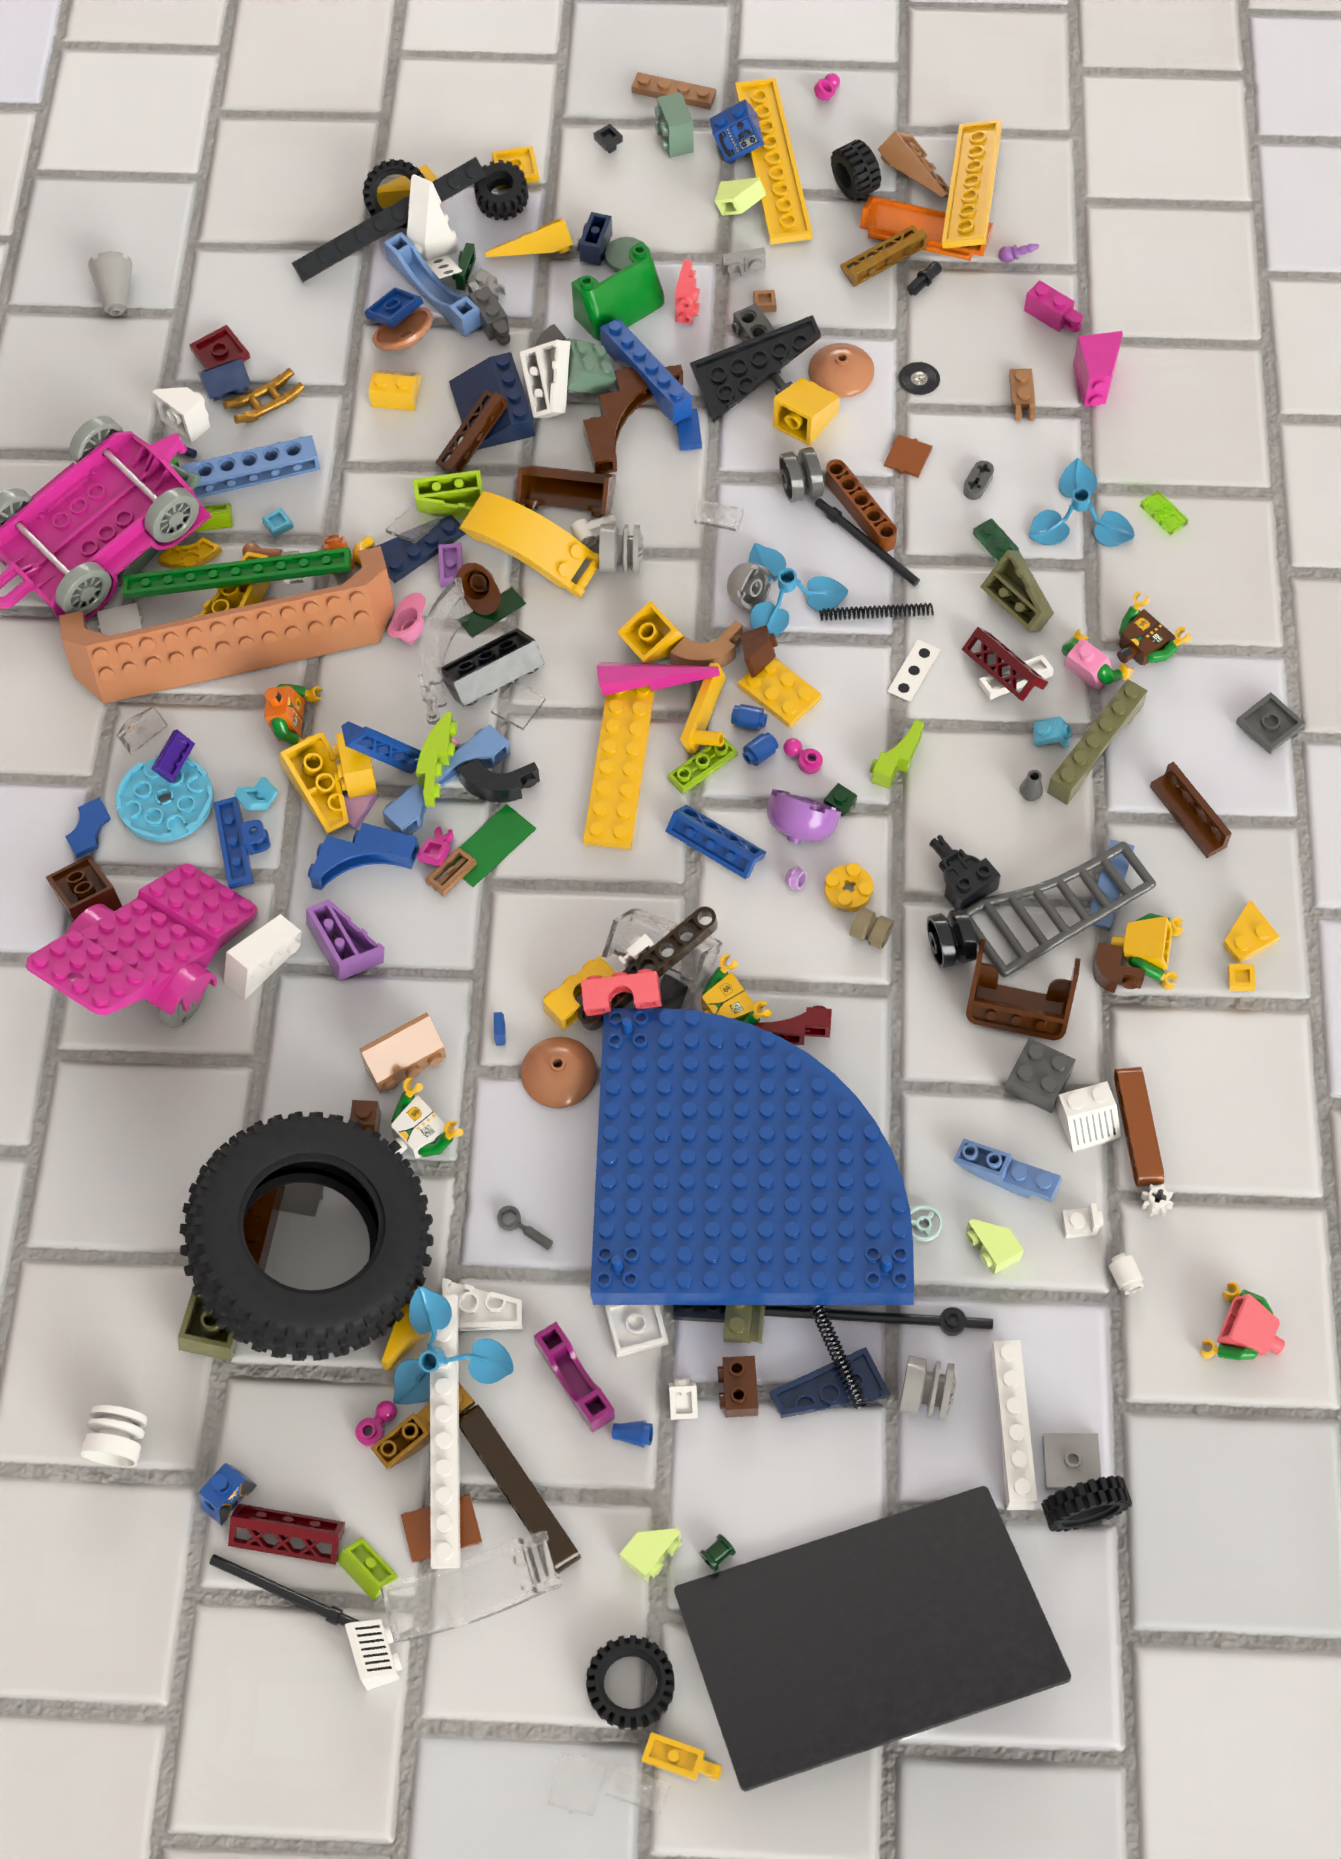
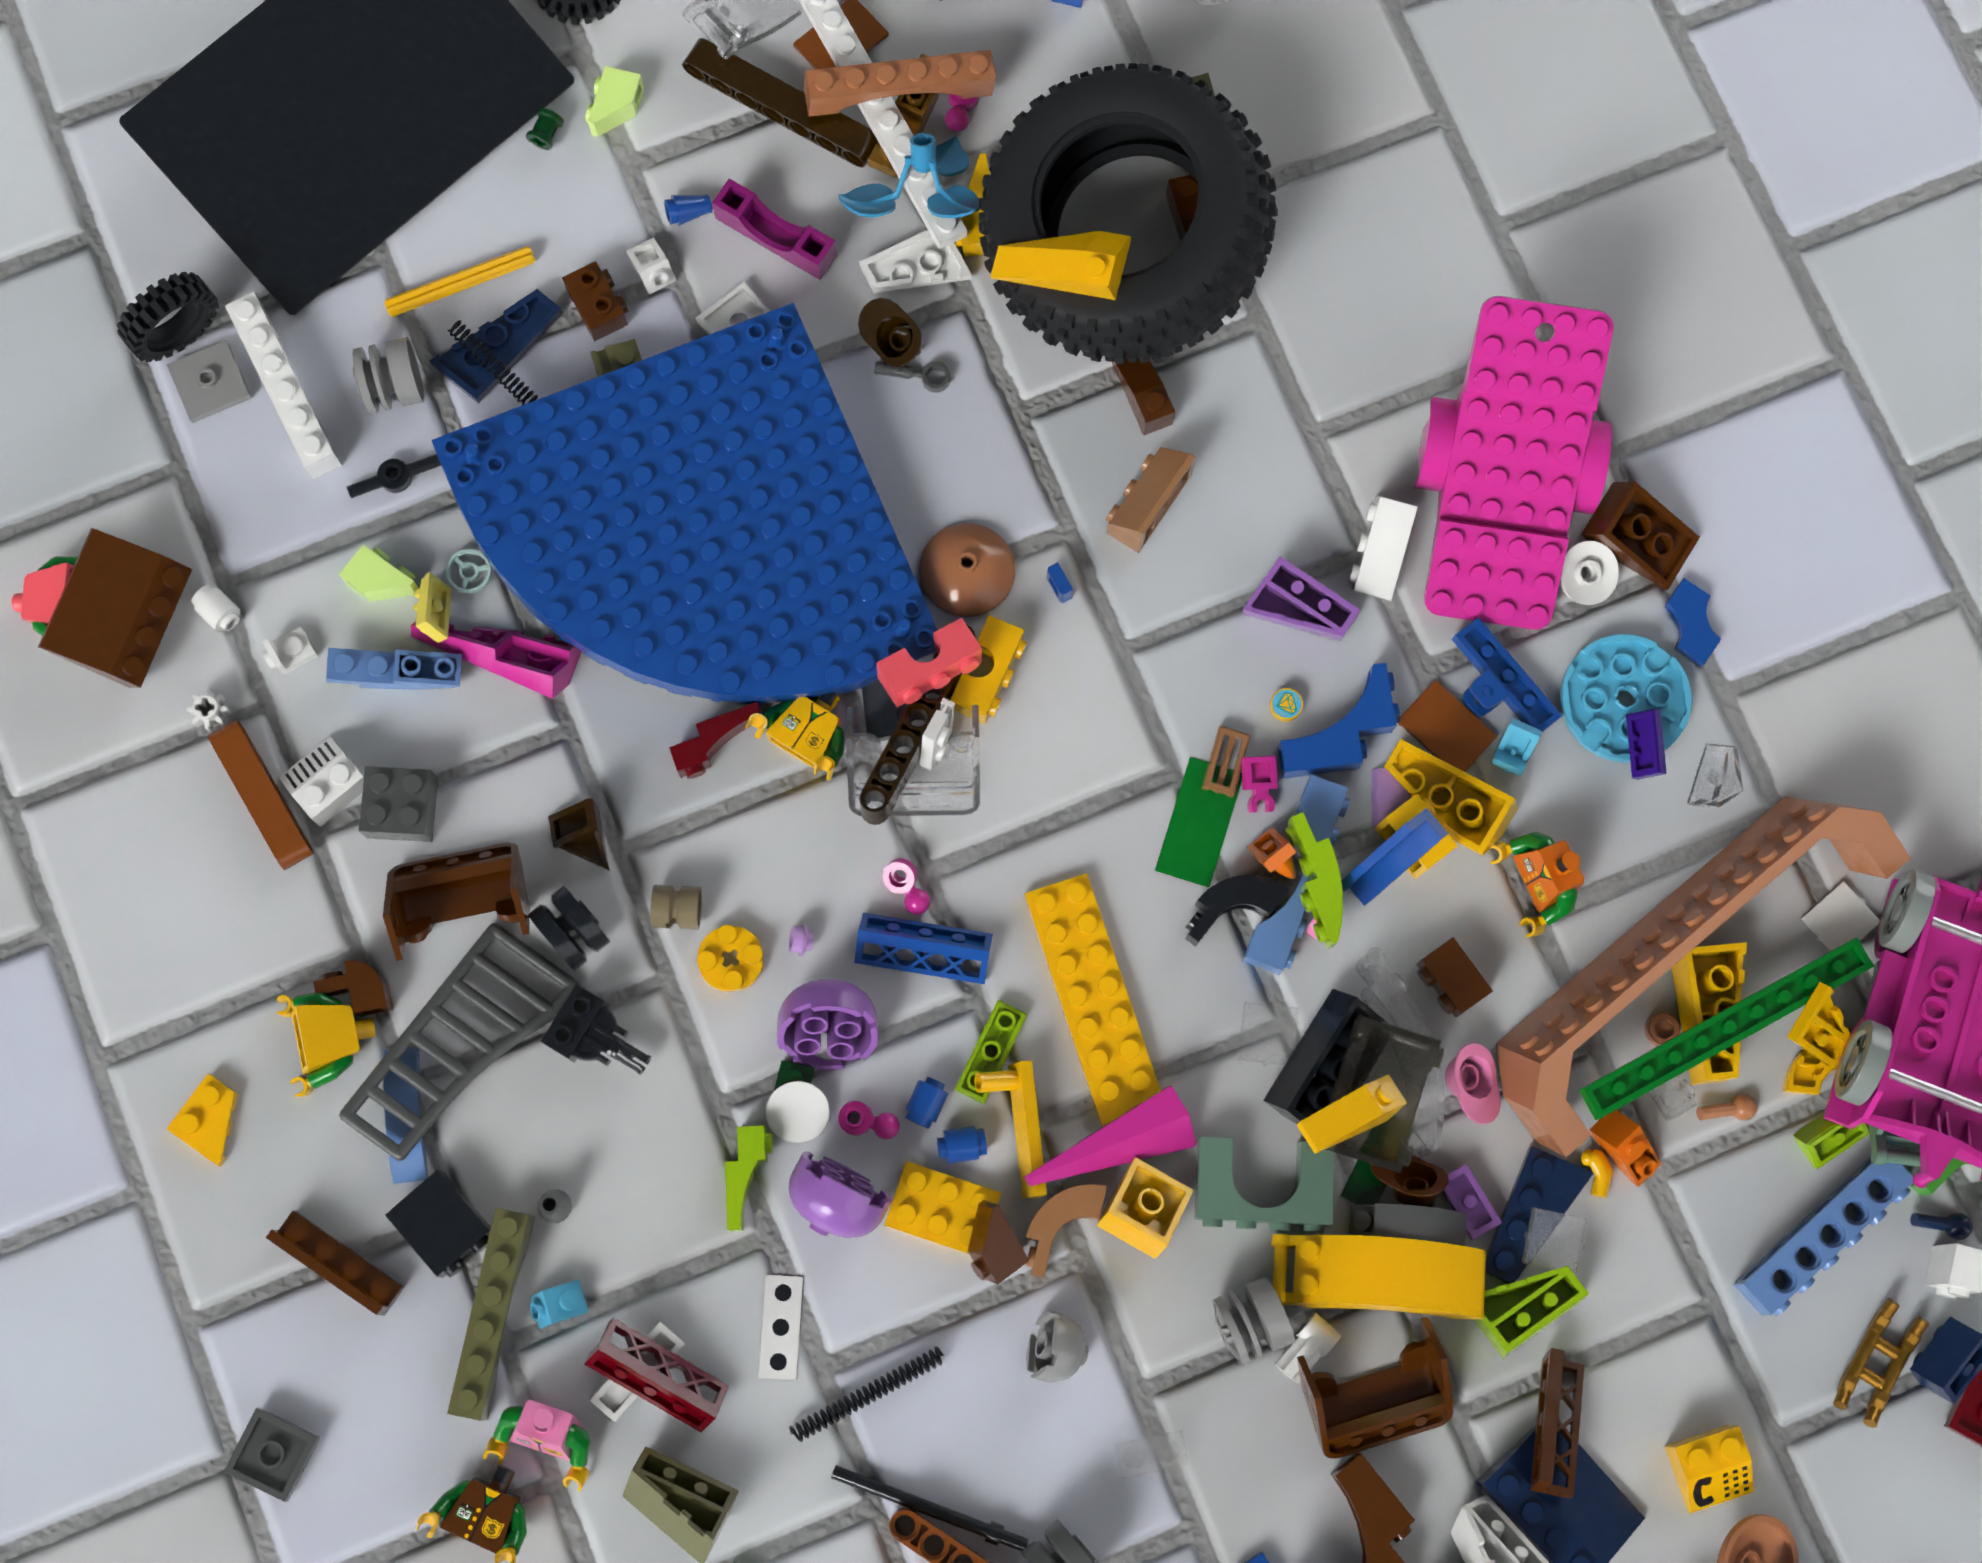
camera: 150 degrees right, 15 degrees up
(132, 878) = (1601, 573): none -> white dish
(180, 555) = (1821, 1027): none -> yellow wing
(277, 522) = (1736, 1166): medium azure tile -> none
(292, 832) = (1446, 727): none -> dark orange piece
(372, 1184) = (1070, 263): none -> yellow wedge
(382, 680) = (1453, 978): none -> reddish brown brick
(389, 889) = (1286, 704): none -> tile
(418, 1127) = (1086, 425): torso -> none
(455, 794) = (1274, 853): none -> orange tile
(457, 1447) = (844, 86): none -> nougat arch
(477, 619) = (1371, 1053): none -> clear smoke windscreen
(497, 560) = (1408, 1222): none -> dark grey arch
(497, 604) = (1352, 1114): none -> yellow slope
(526, 1254) = (890, 332): none -> dark brown piece
(552, 600) = (1220, 1201): none -> sand green arch
(708, 886) = (916, 900): none -> dark pink plate
(822, 590) = (952, 1395): dark azure plant -> none
(839, 1455) = (459, 281): none -> yellow axle
(843, 709) = (836, 1198): none -> medium lavender cylinder
(846, 778) = (797, 1111): none -> white sticker
(917, 1010) = (580, 832): none -> dark brown slope
(922, 1154) = (532, 662): none -> dark pink wedge
(959, 1201) = (433, 607): none -> light yellow plate
(1111, 805) = (440, 1224): none -> black brick
(1202, 1292) = (115, 608): none -> reddish brown slope
(1241, 977) = (197, 1048): yellow plate -> none

